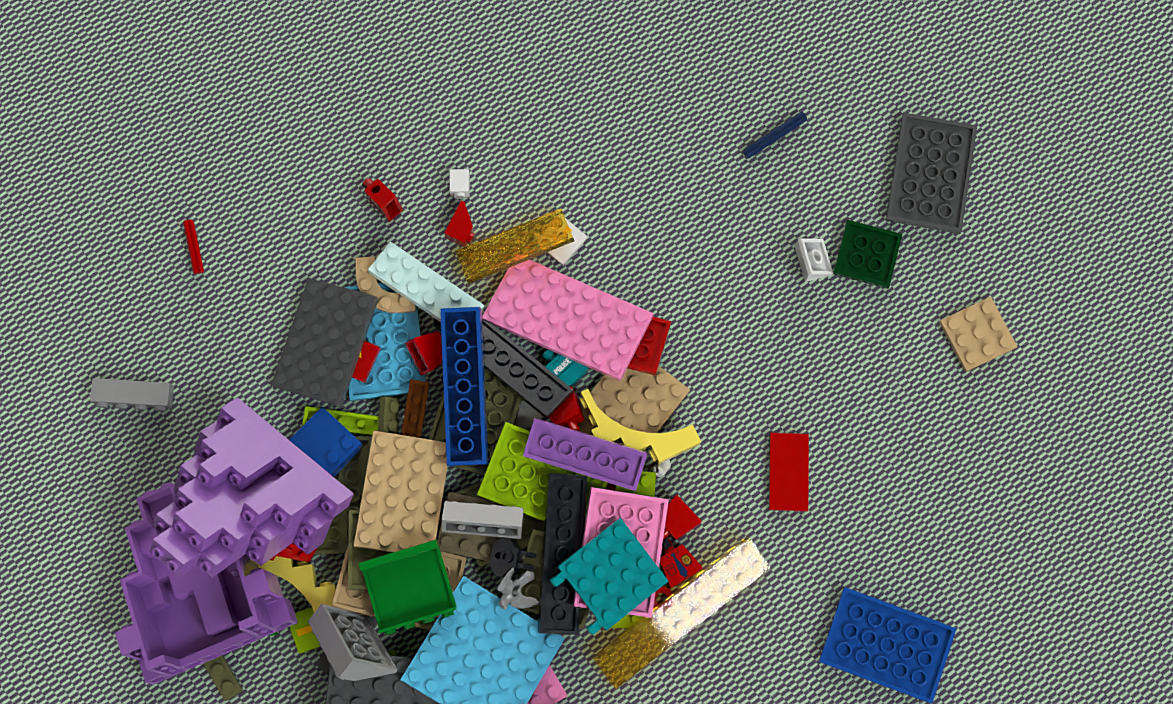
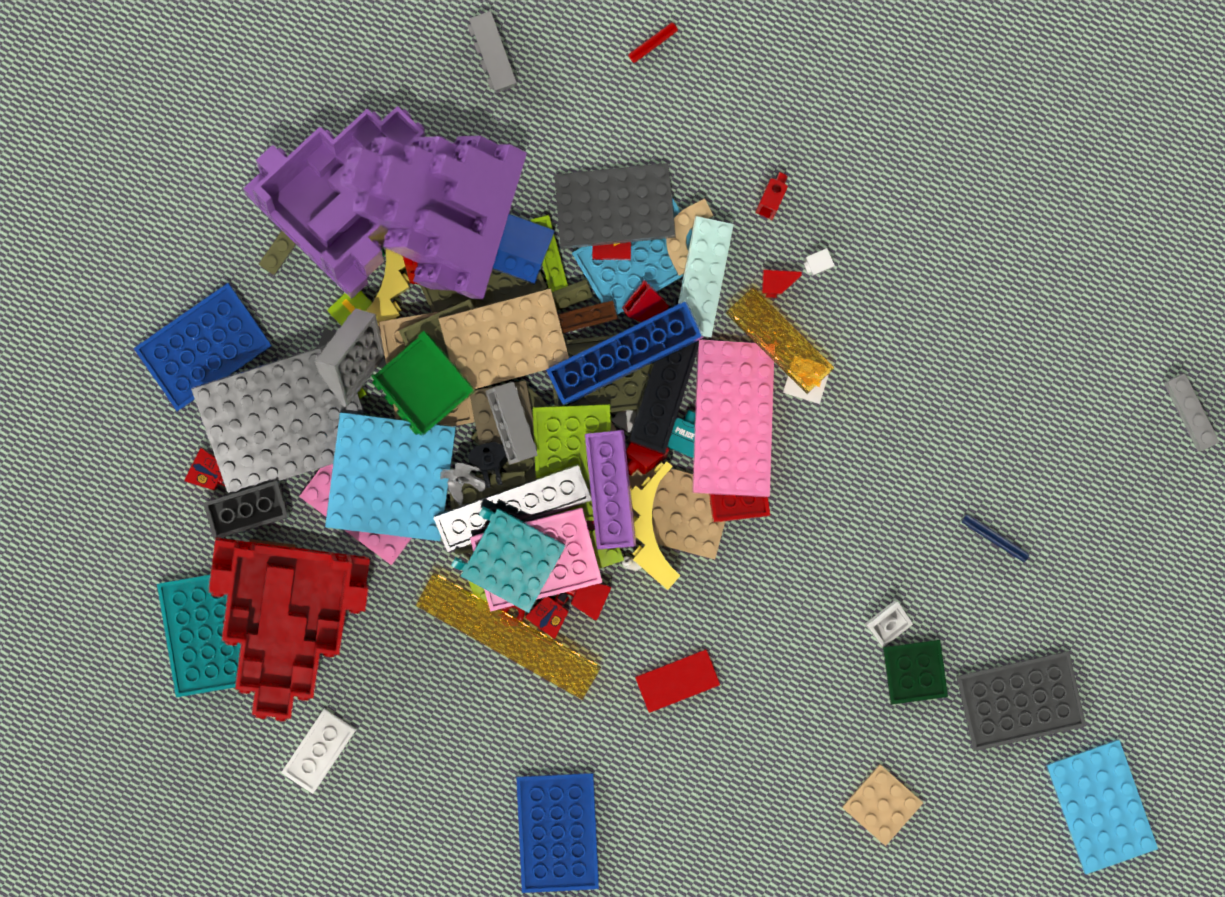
camera: 65 degrees right, 10 degrees up
(1055, 143) = (1102, 806): none -> medium azure plate

